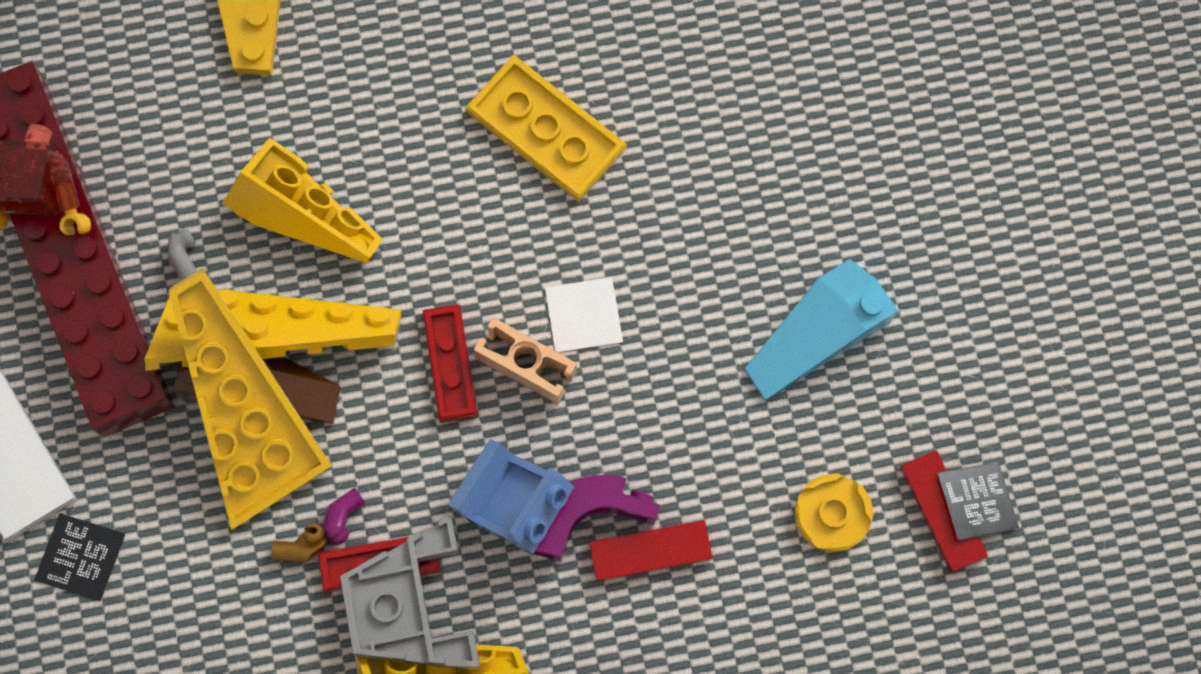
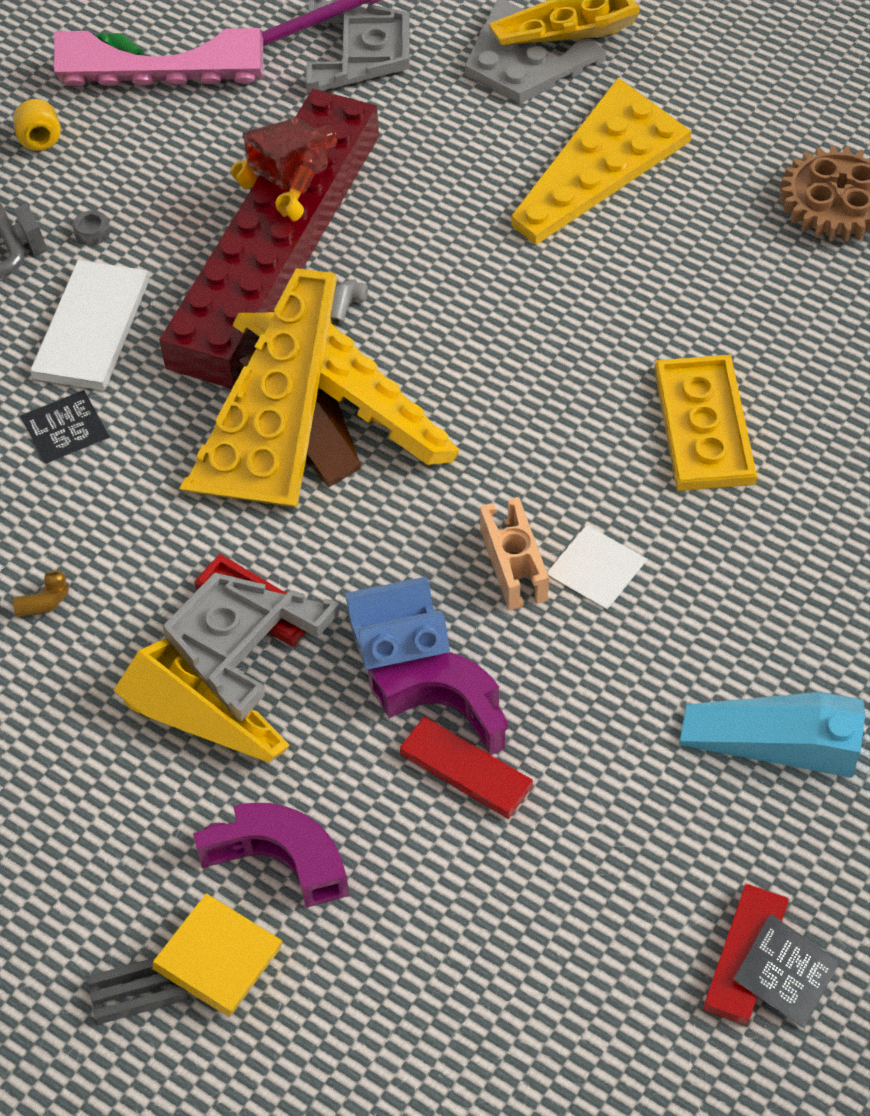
camera: 50 degrees right, 20 degrees down
(285, 199) = (457, 314): yellow wedge -> none
(304, 548) = (212, 544): pearl gold arm -> none
(336, 516) = (264, 540): magenta arm -> none
(450, 363) = (455, 515): red tile -> none
(833, 513) = (647, 872): yellow tile -> none

